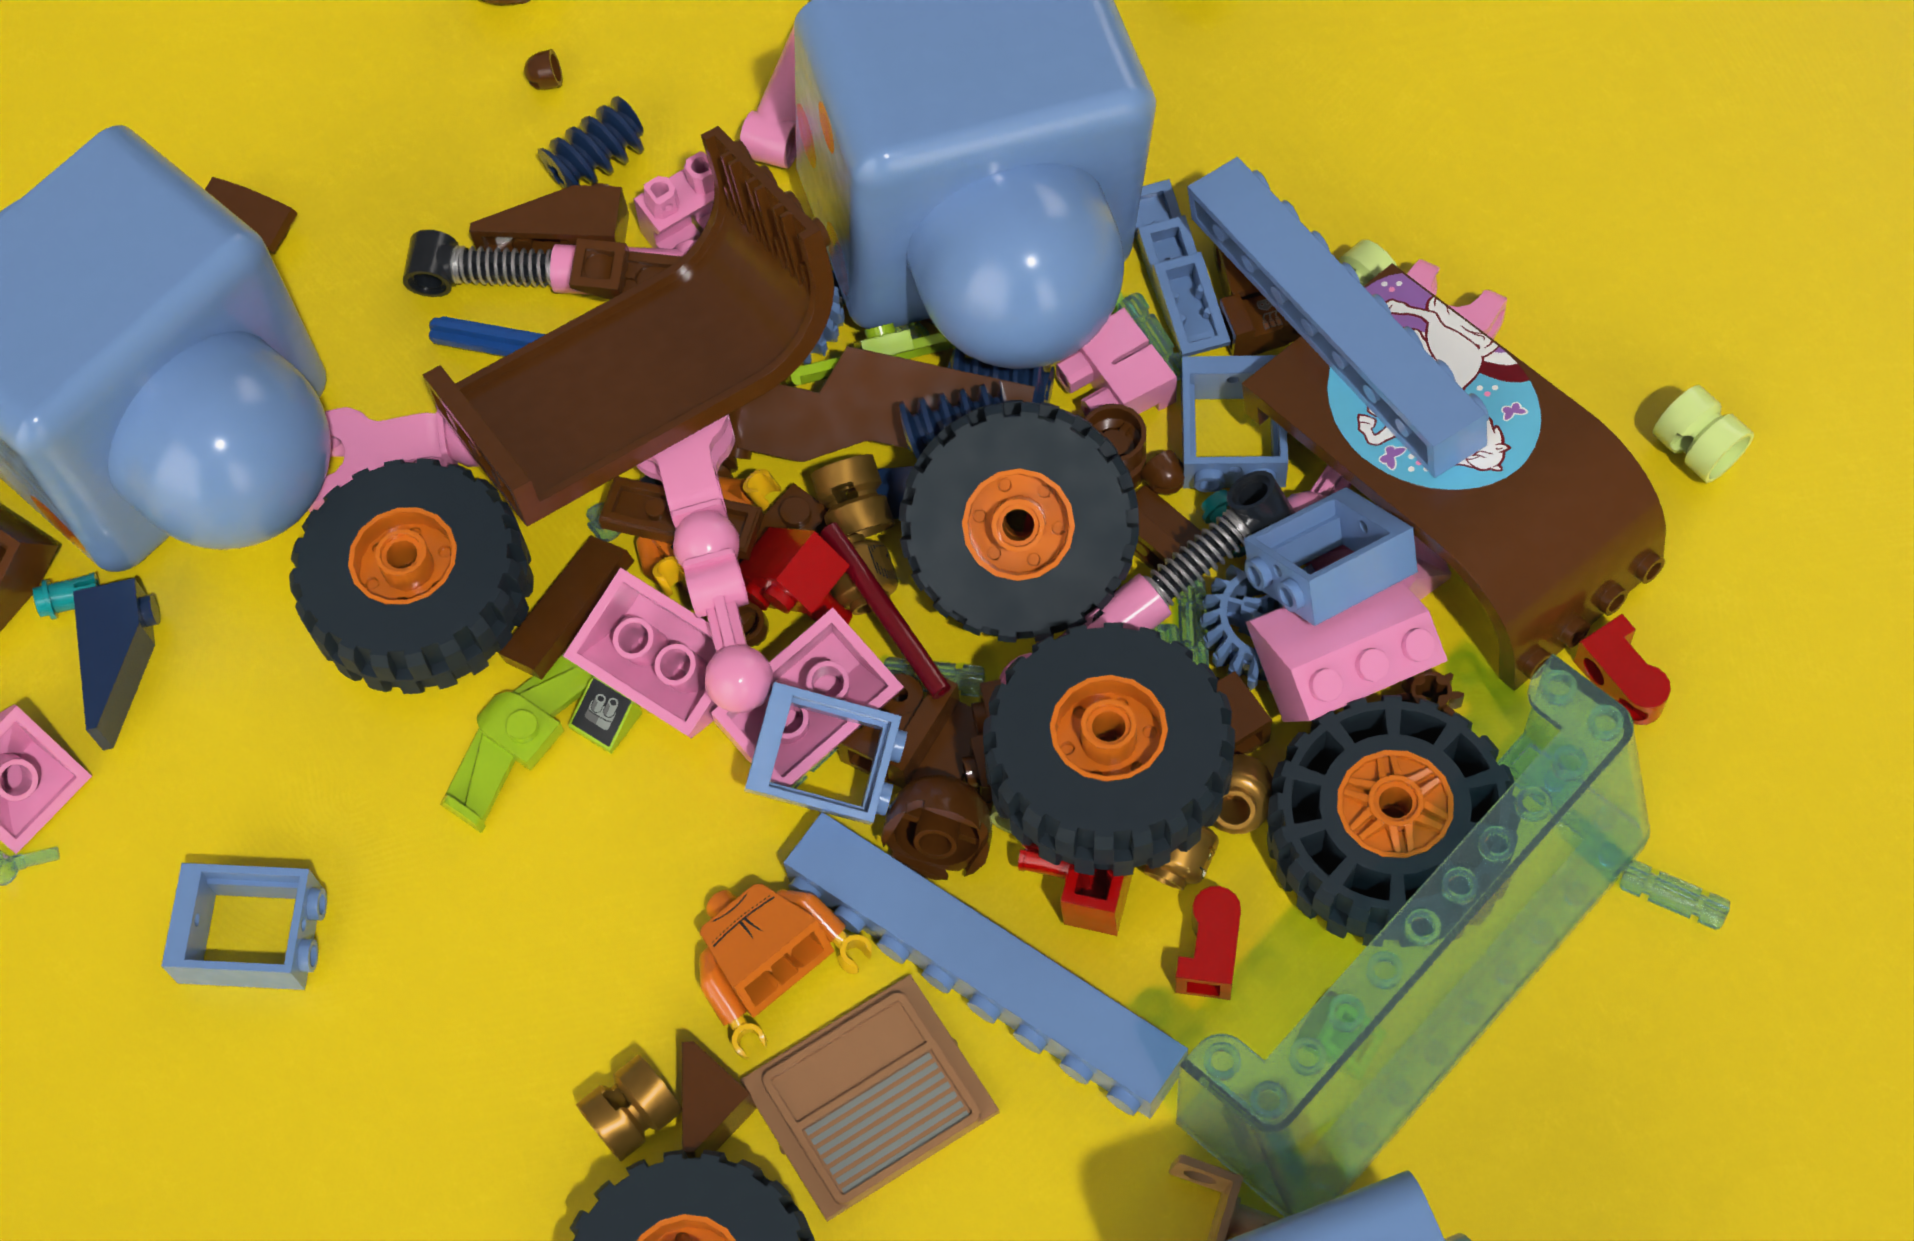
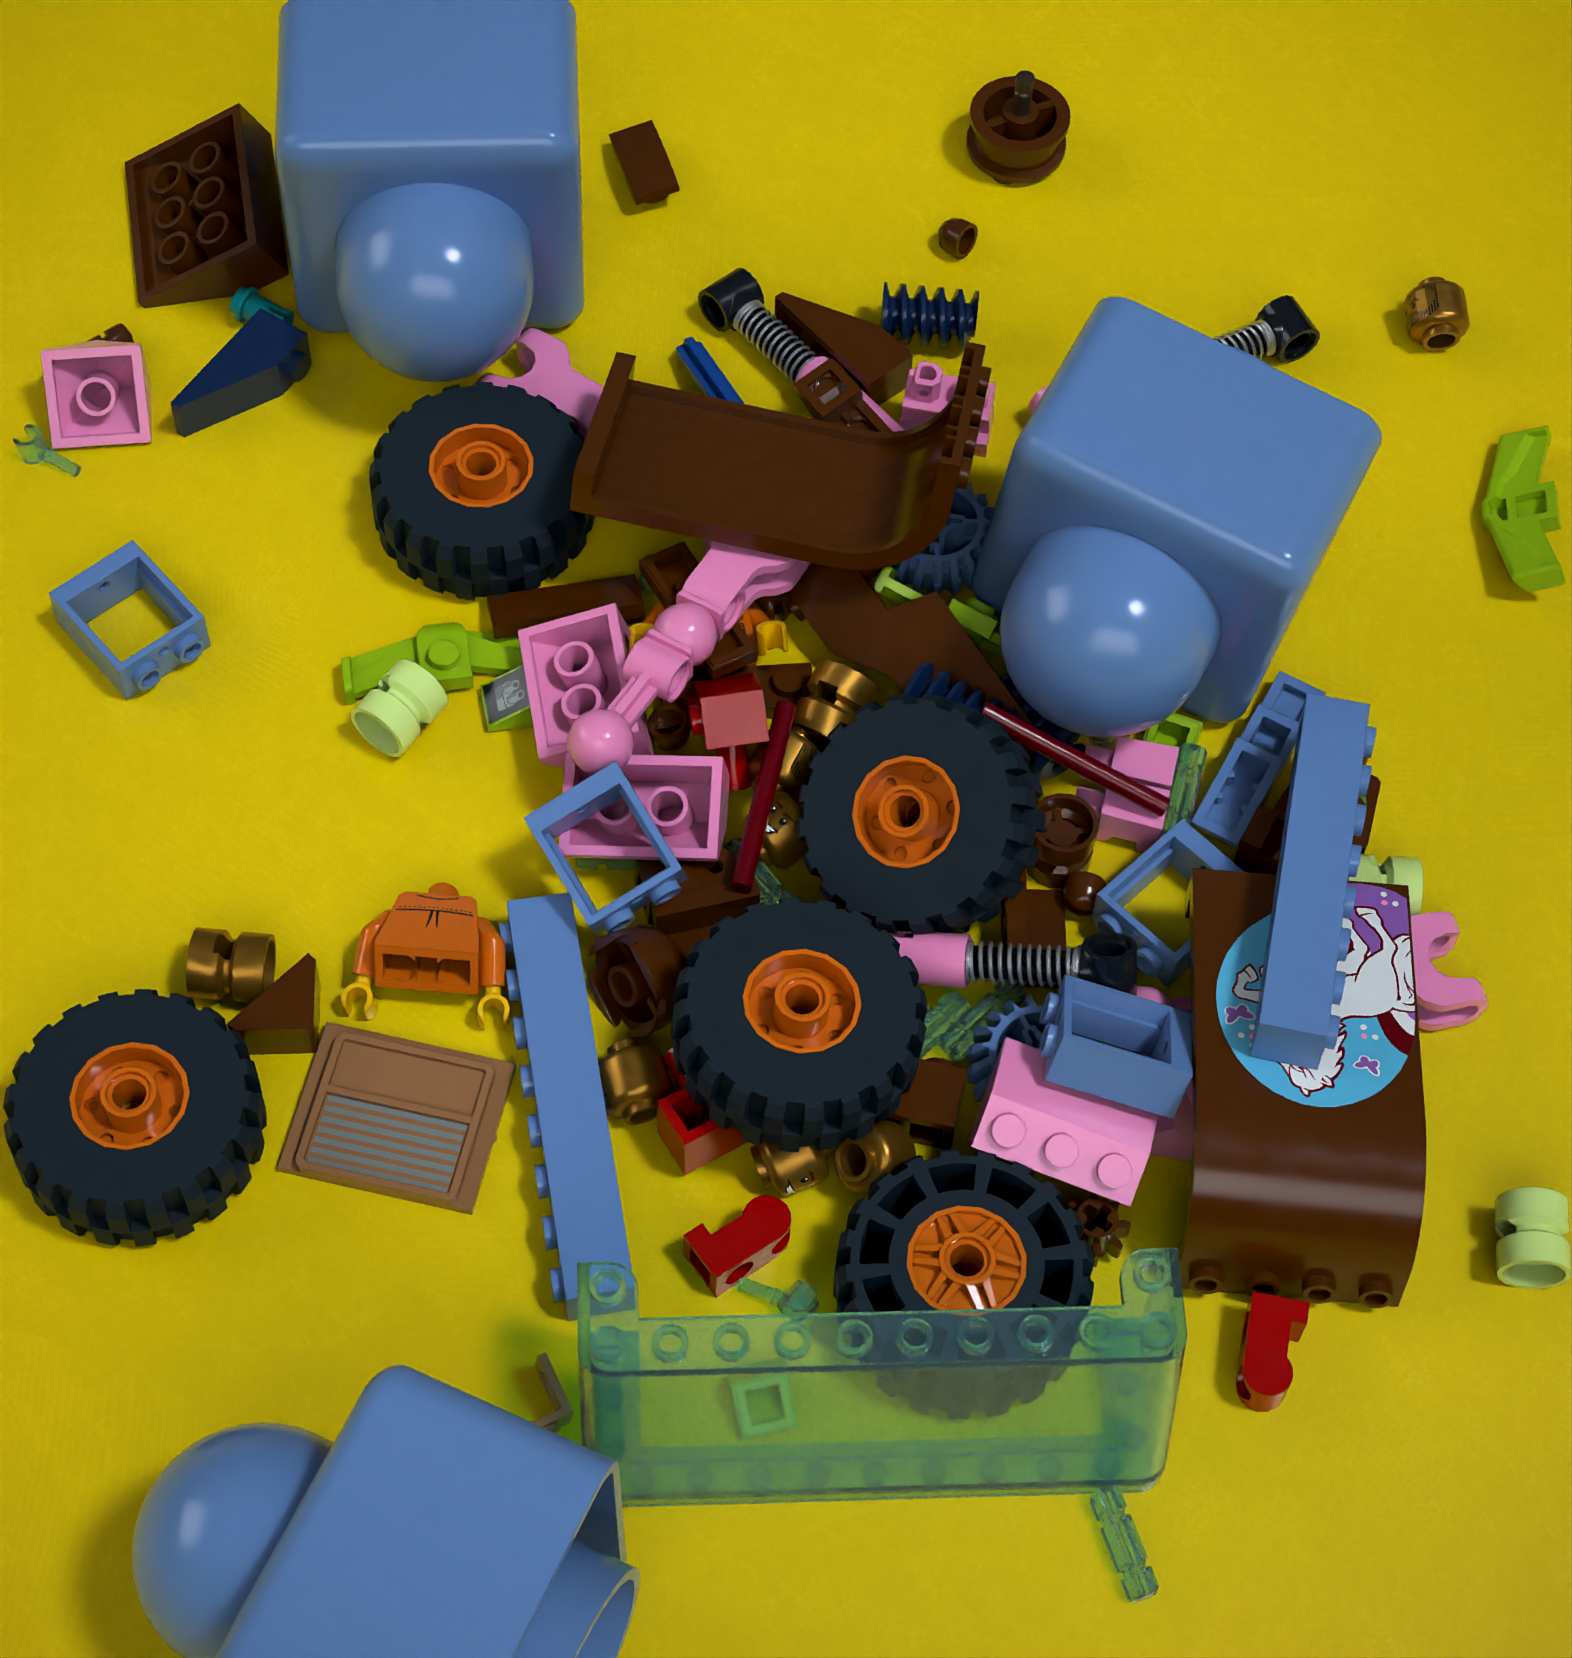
camera: 35 degrees right, 5 degrees down
(533, 804) = (399, 707): none -> yellowish green wheel
(921, 617) = (781, 836): none -> pearl gold head
(1014, 901) = (634, 1081): none -> pearl gold head
(1080, 379) = (1078, 761): none -> dark red piece
(1291, 952) = (797, 1300): none -> clear light blue hand

